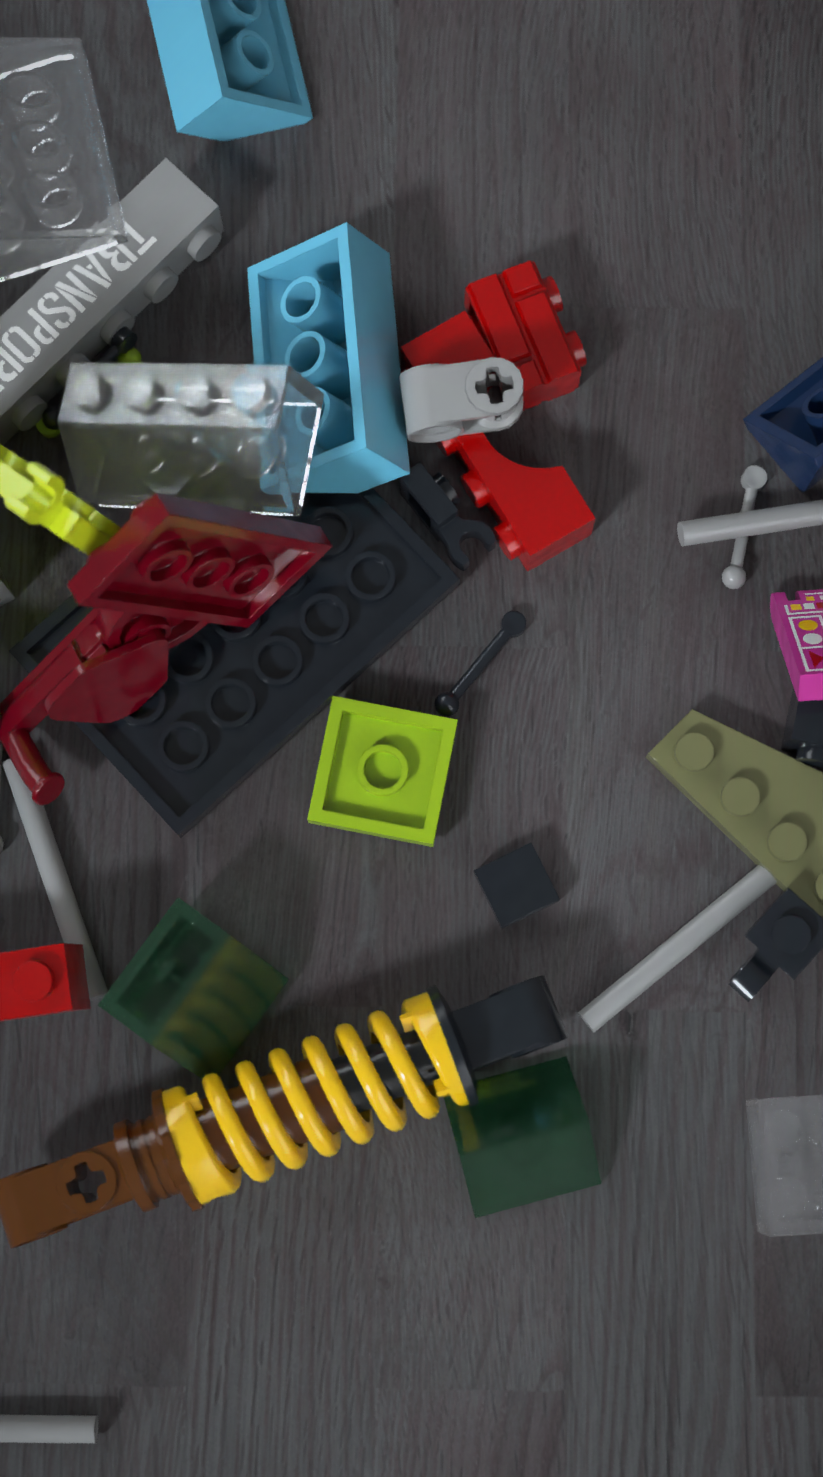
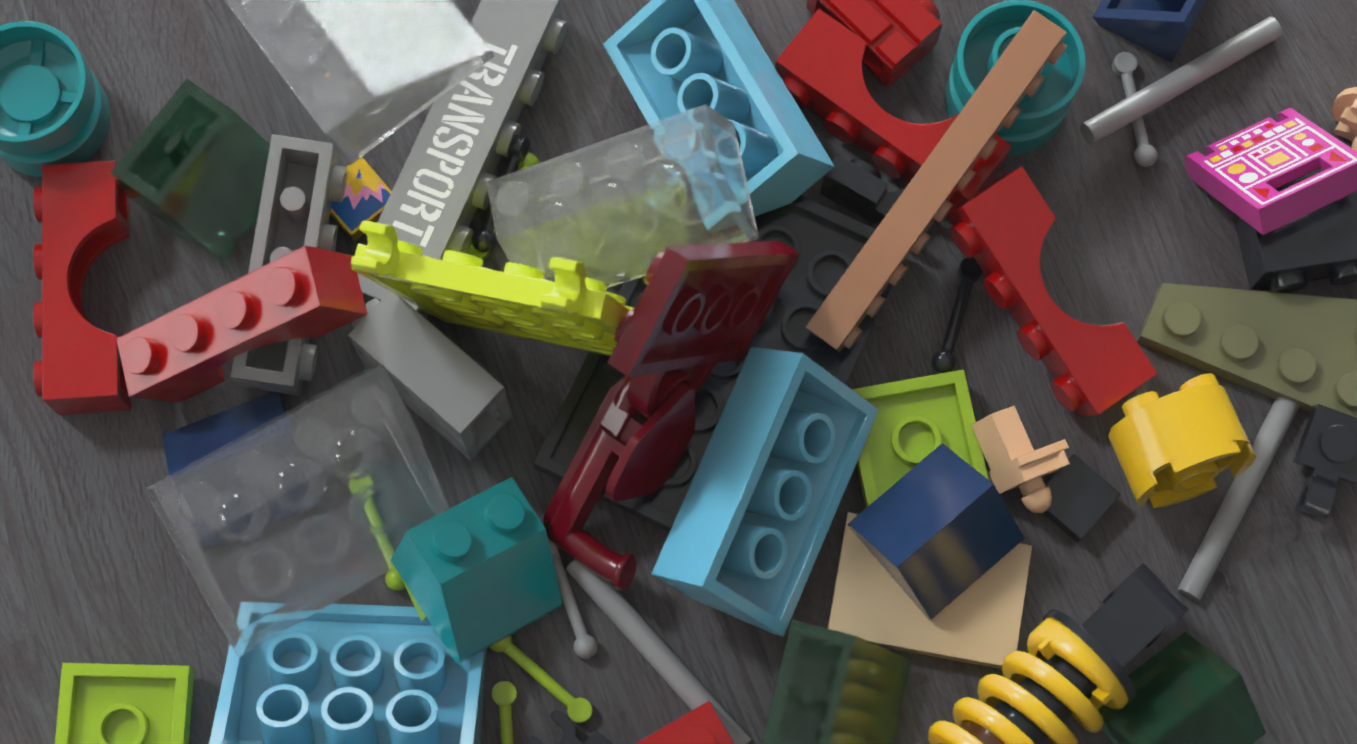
camera: 25 degrees left, 5 degrees down
(211, 763) = (766, 489): none -> medium azure slope
(336, 919) = (972, 629): none -> tan tile
(360, 866) = (938, 529): none -> dark blue slope
(454, 400) = (846, 89): light grey piece -> none
(466, 828) = (1014, 460): none -> light nougat piece
(498, 525) = (937, 180): none -> nougat piece
(548, 597) = (1005, 235): none -> red arch
(631, 448) = (980, 49): none -> teal wheel
(632, 872) = (1180, 442): none -> yellow brick

